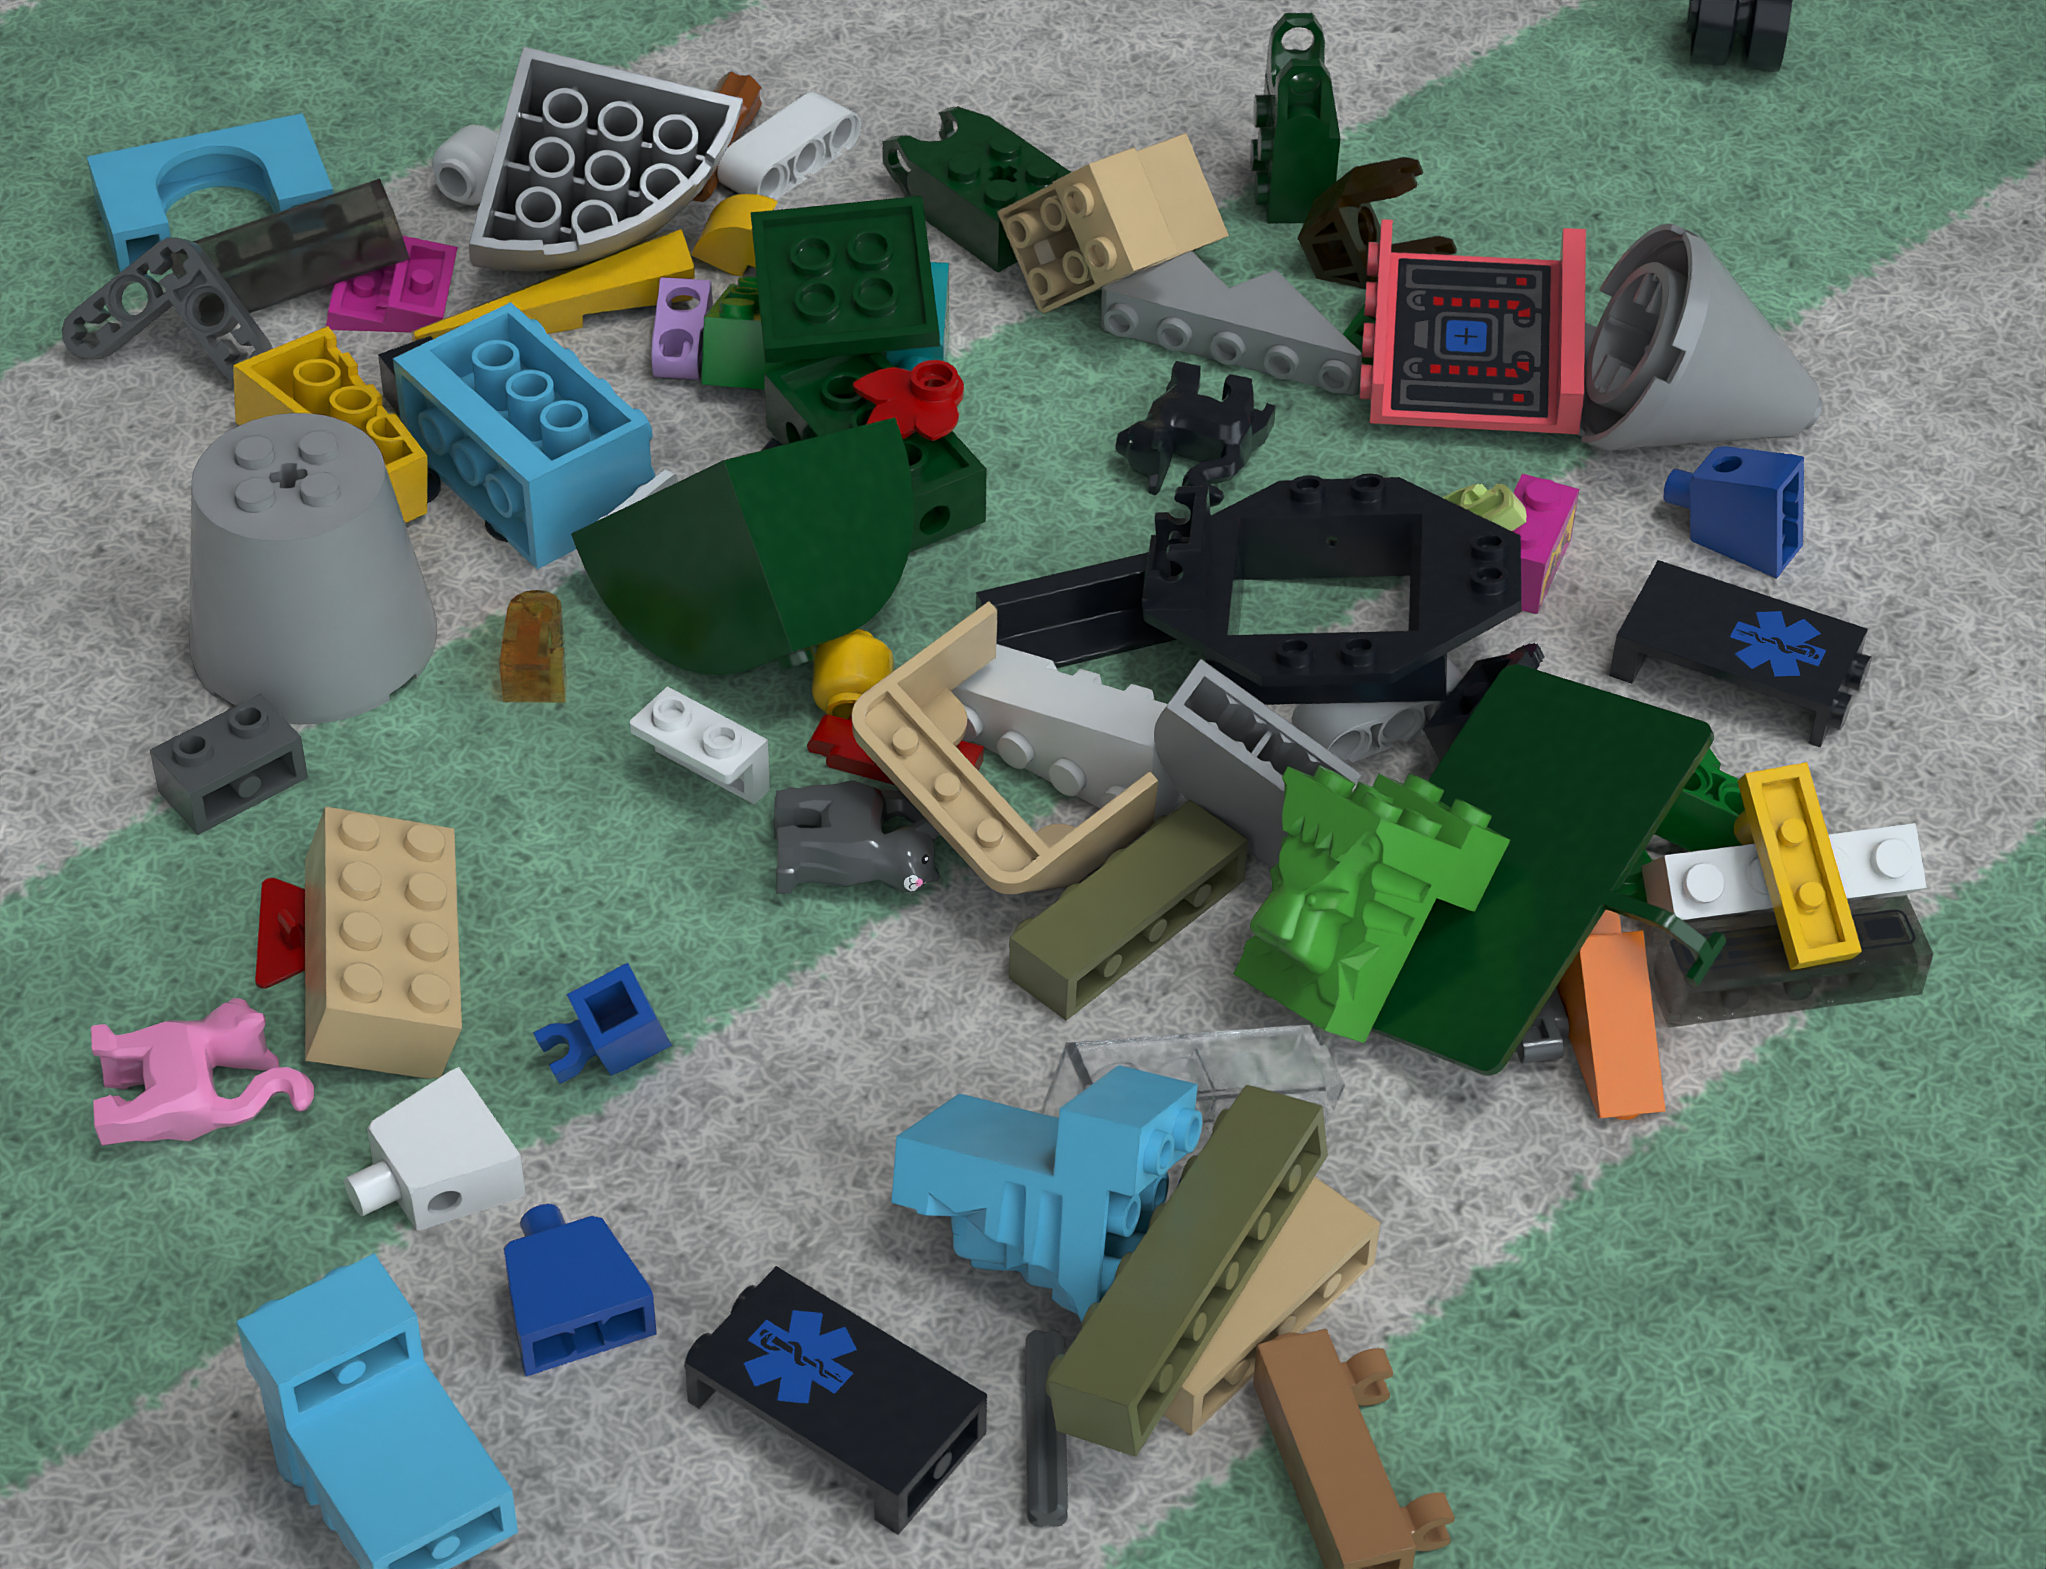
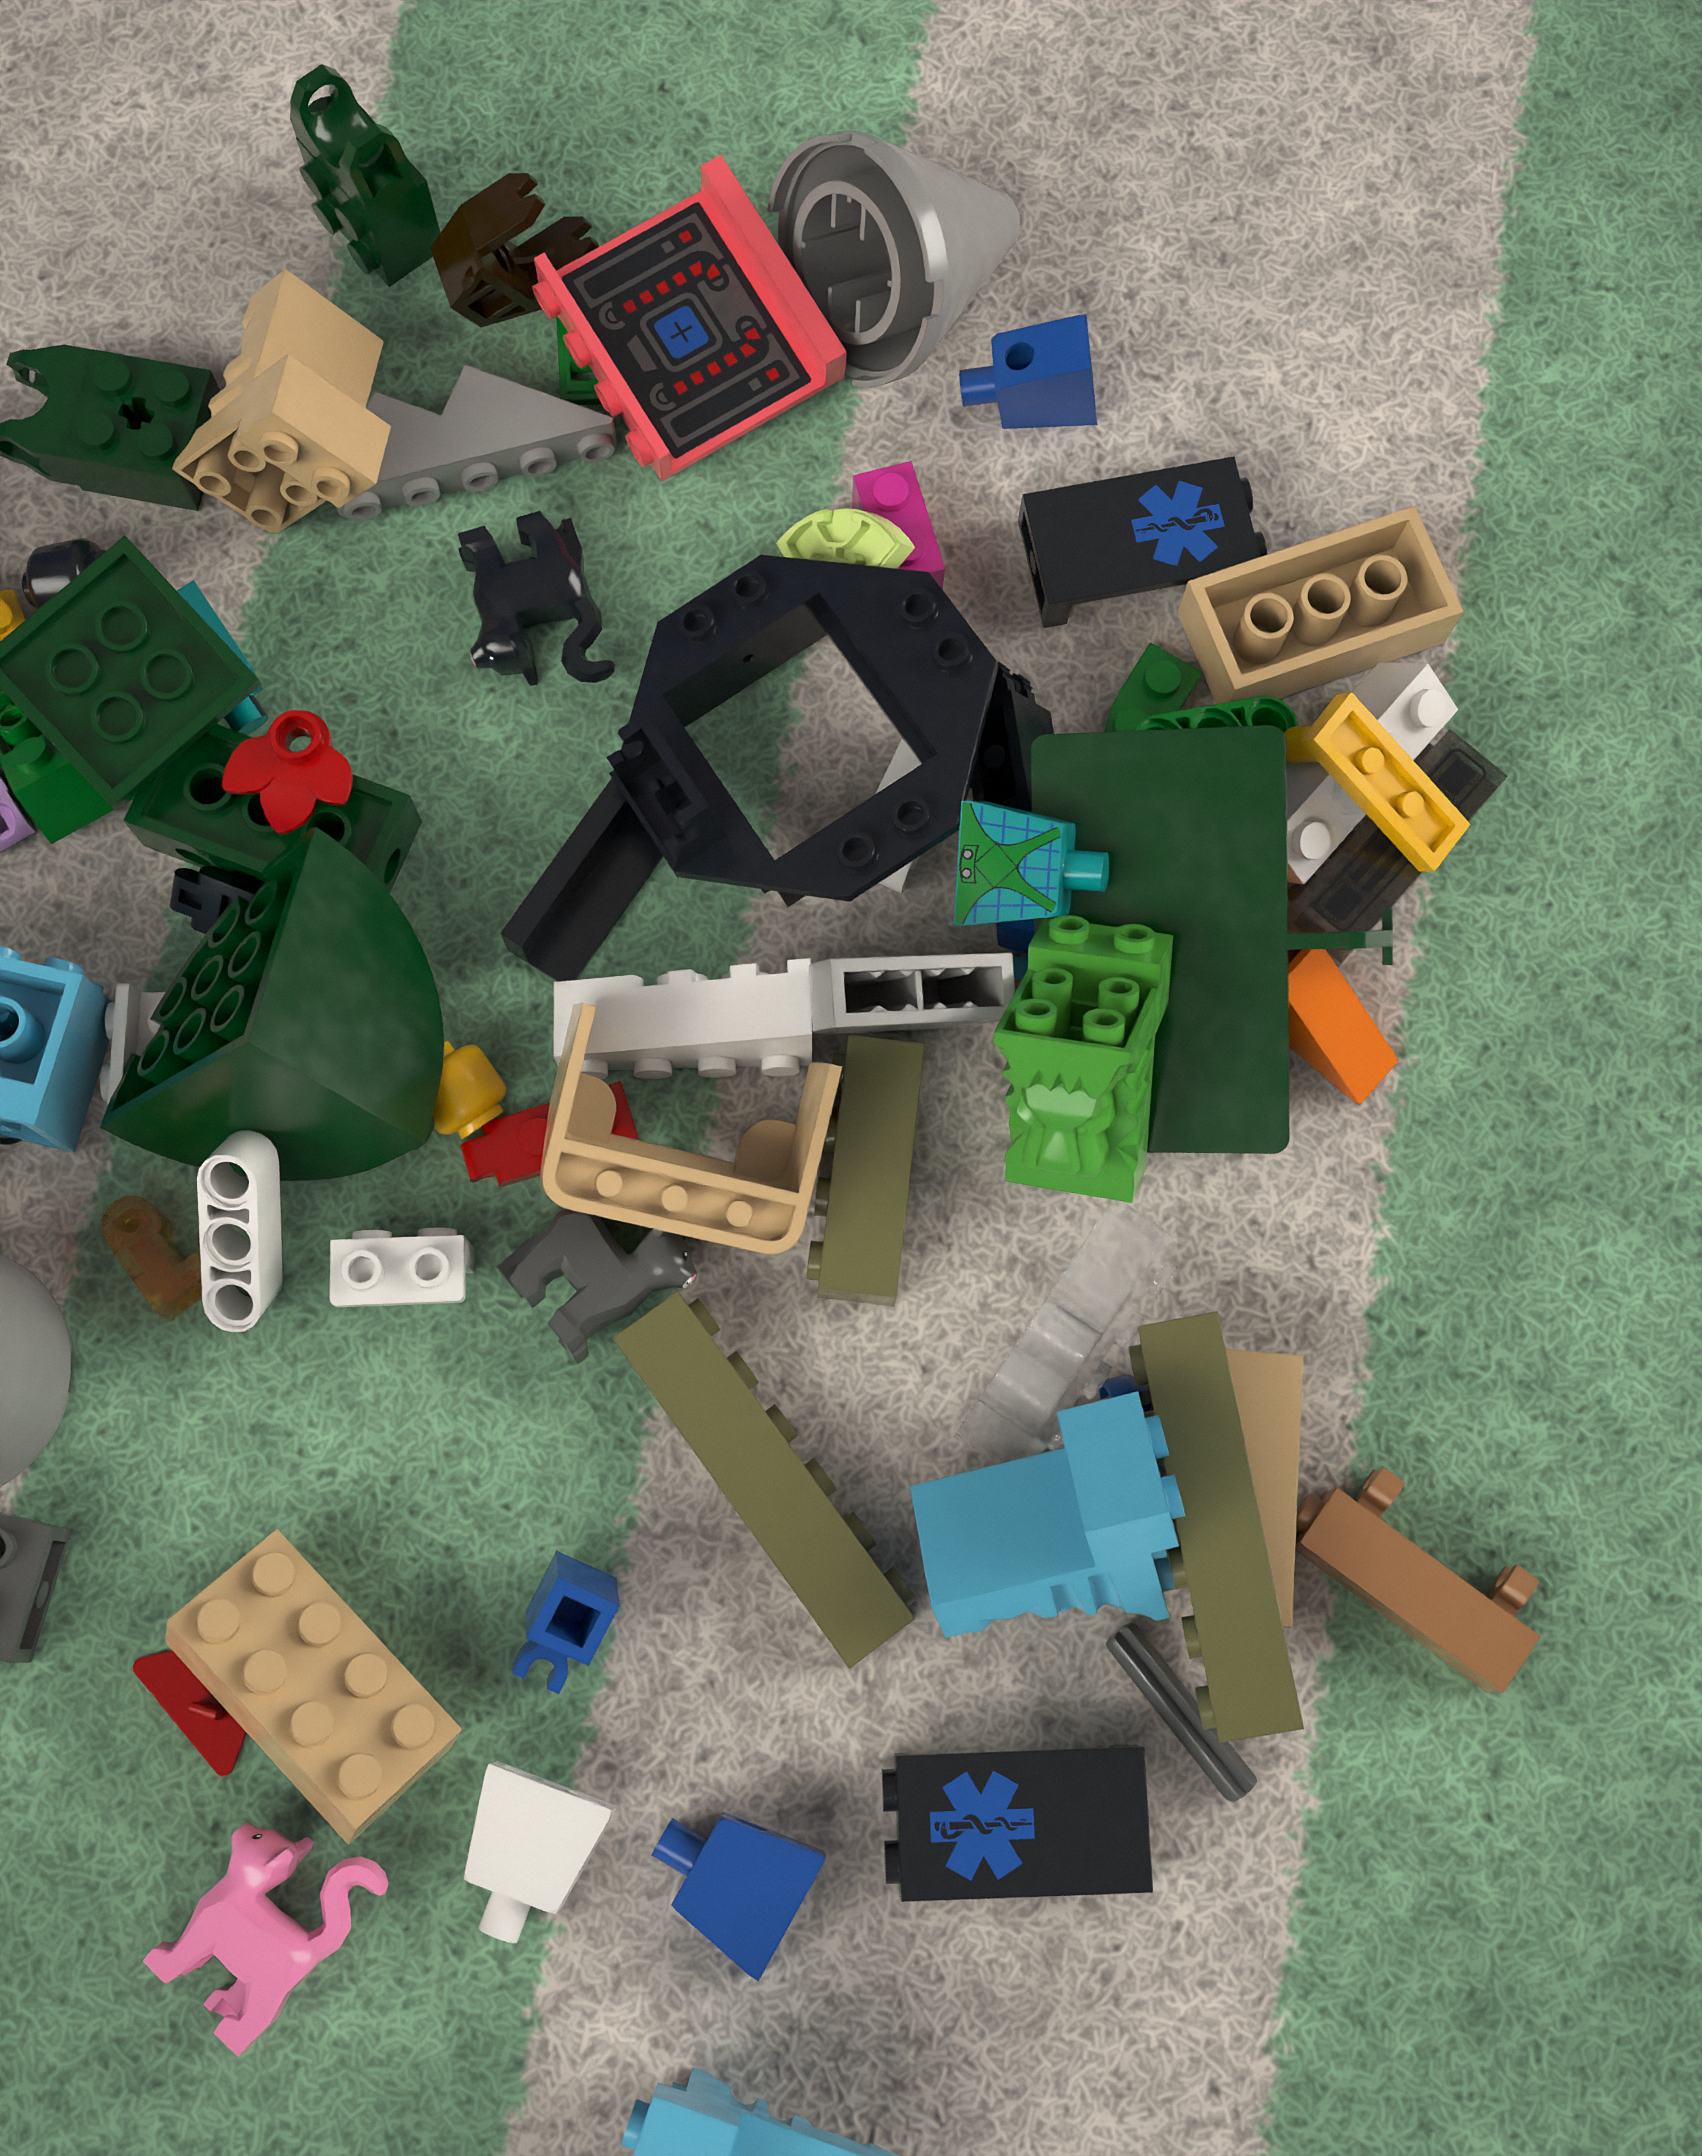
camera: 40 degrees left, 30 degrees up
(608, 643) = (224, 1253): none -> white beam
(848, 1053) = (764, 1478): none -> olive brick
(1425, 731) = (1019, 865): none -> torso
(1870, 759) = (1320, 609): none -> tan brick

